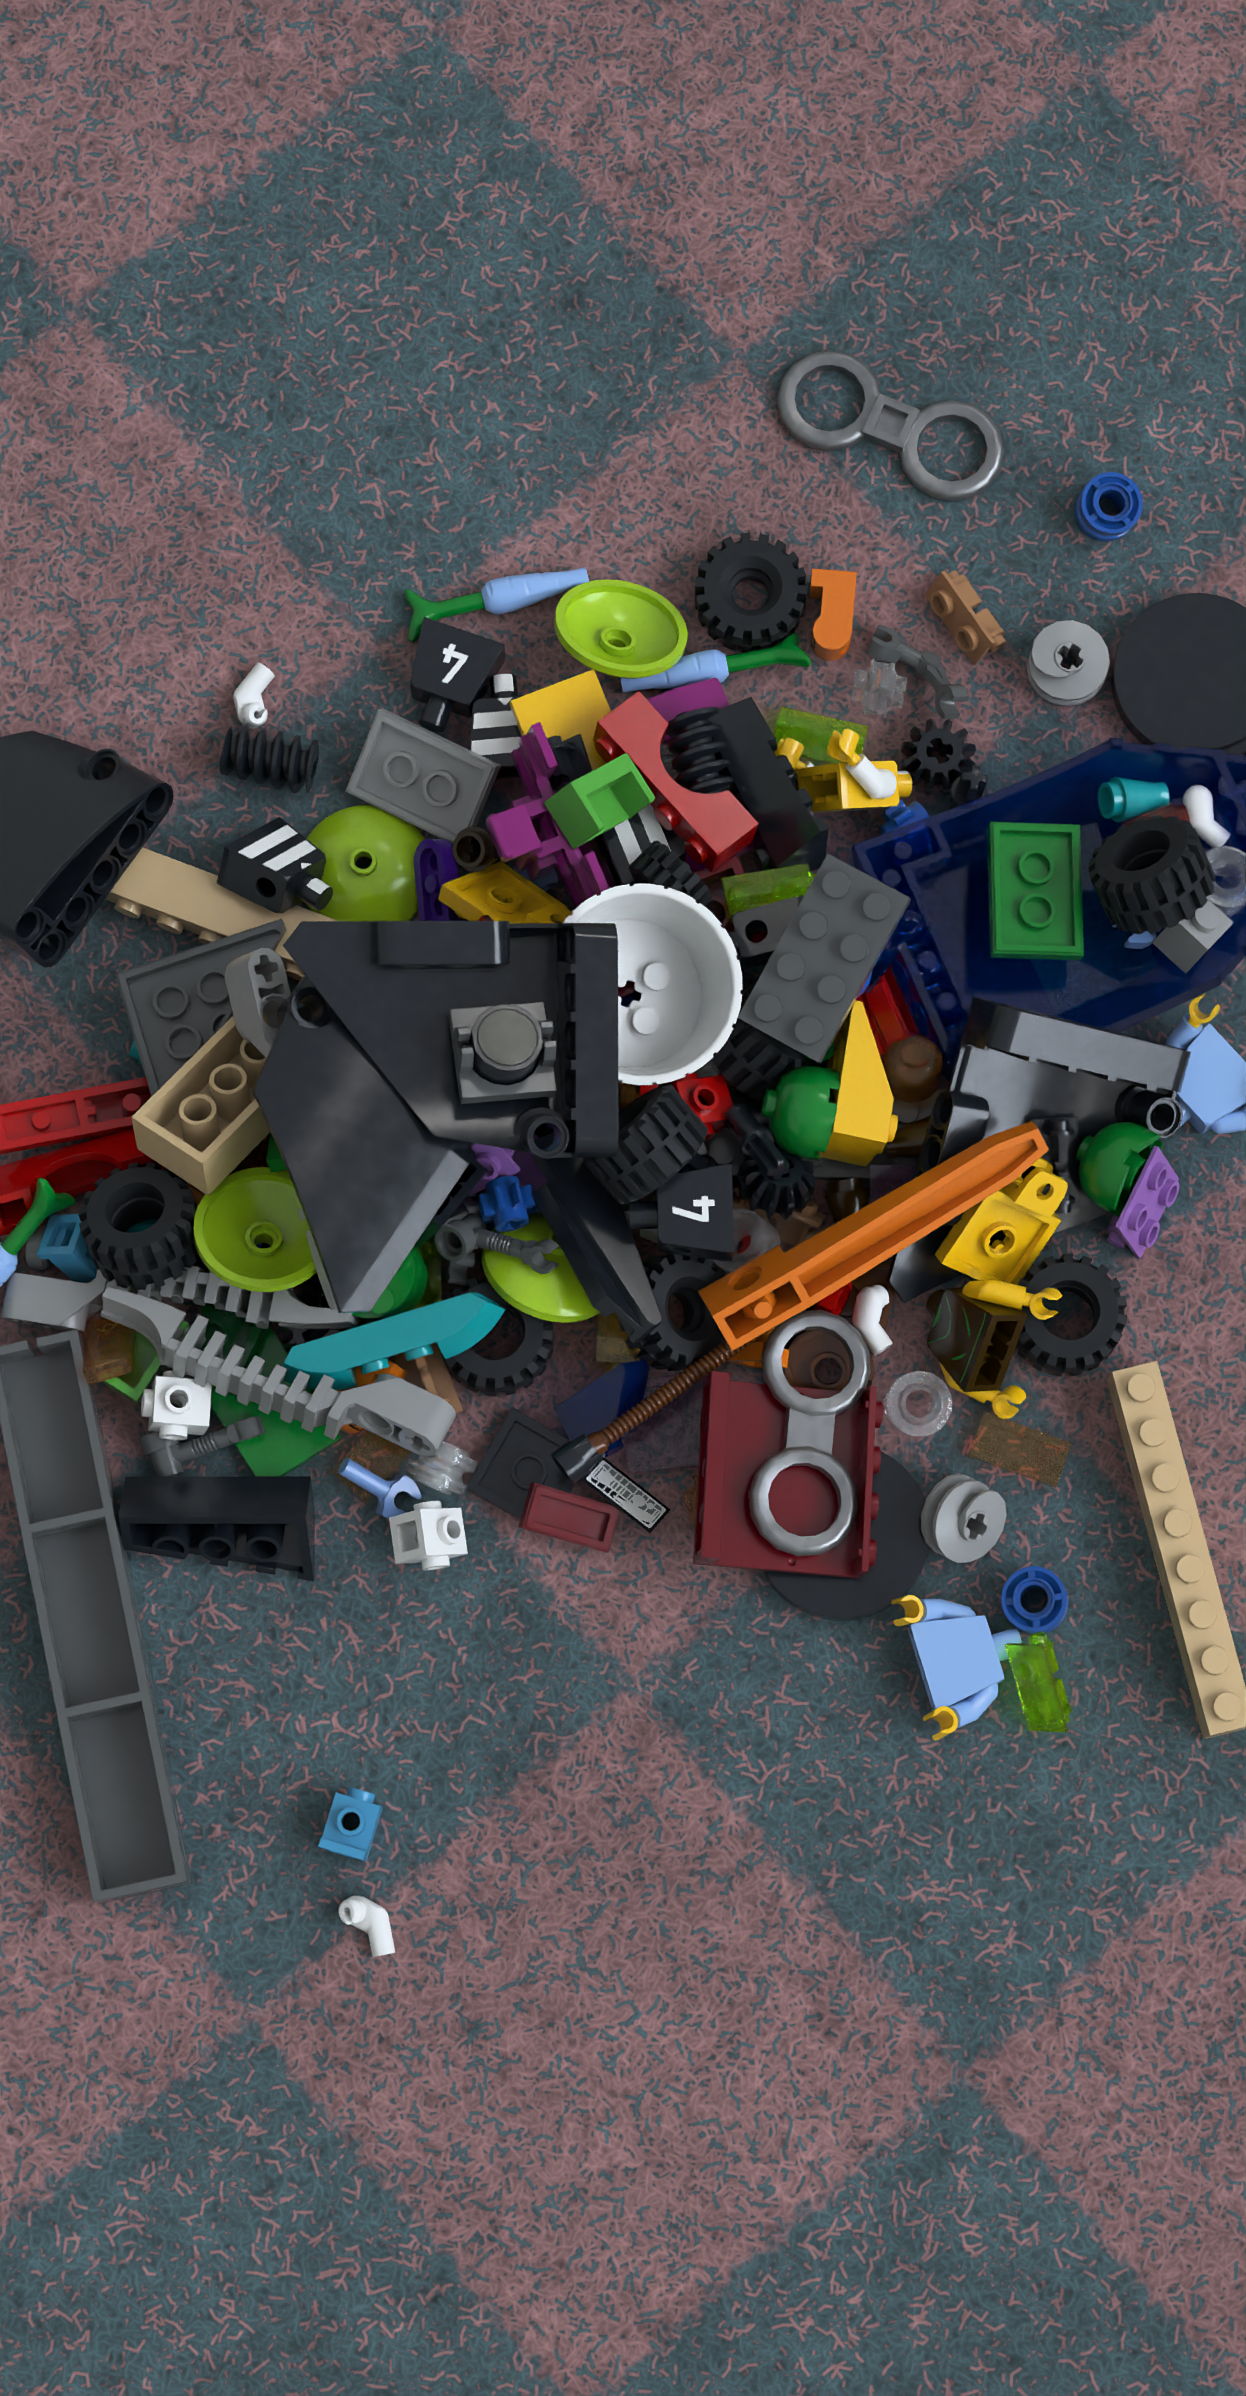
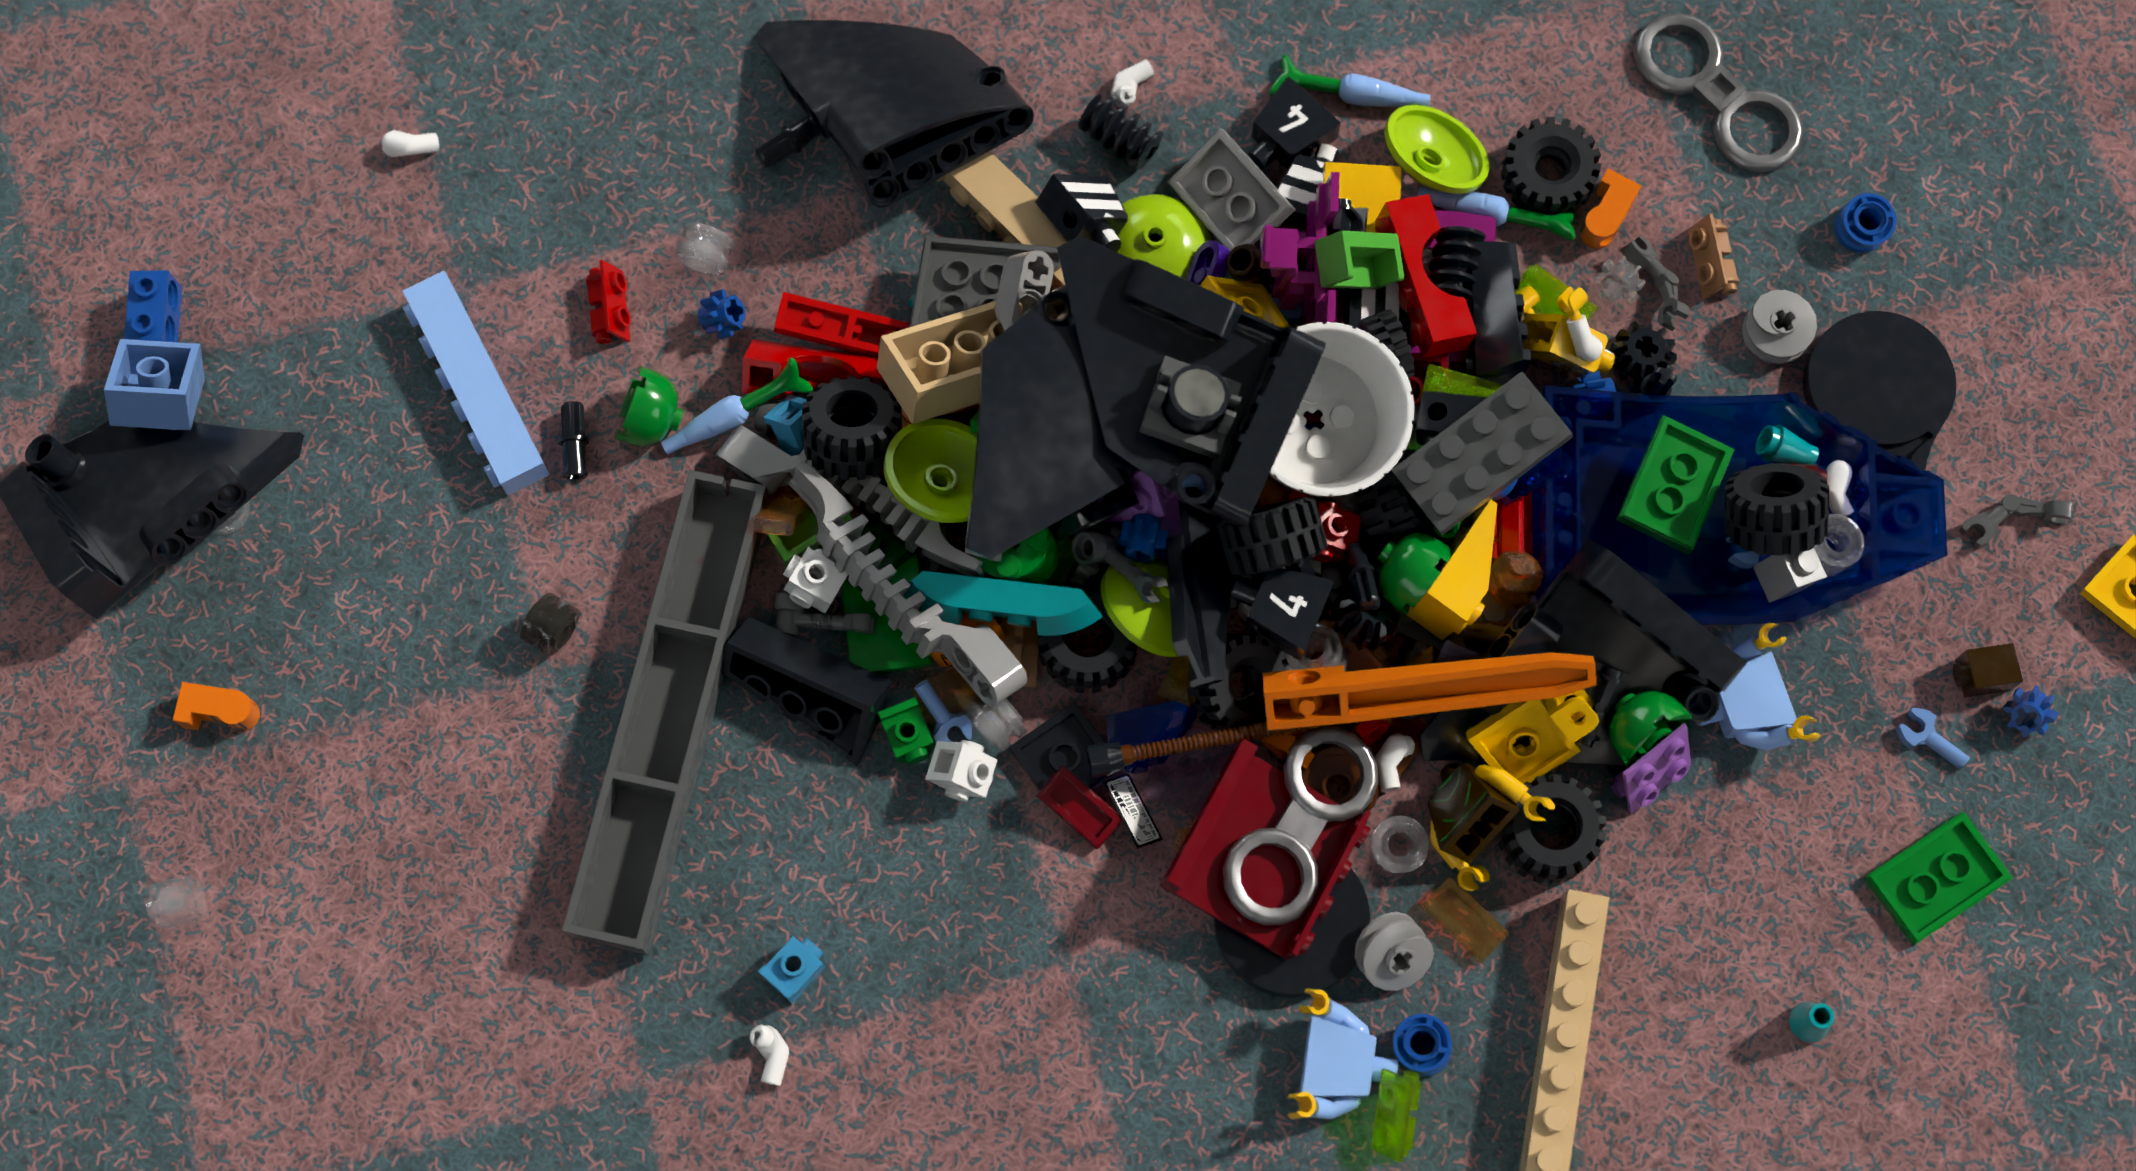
camera: 25 degrees right, 5 degrees down
(337, 1508) = (911, 749): none -> green brick

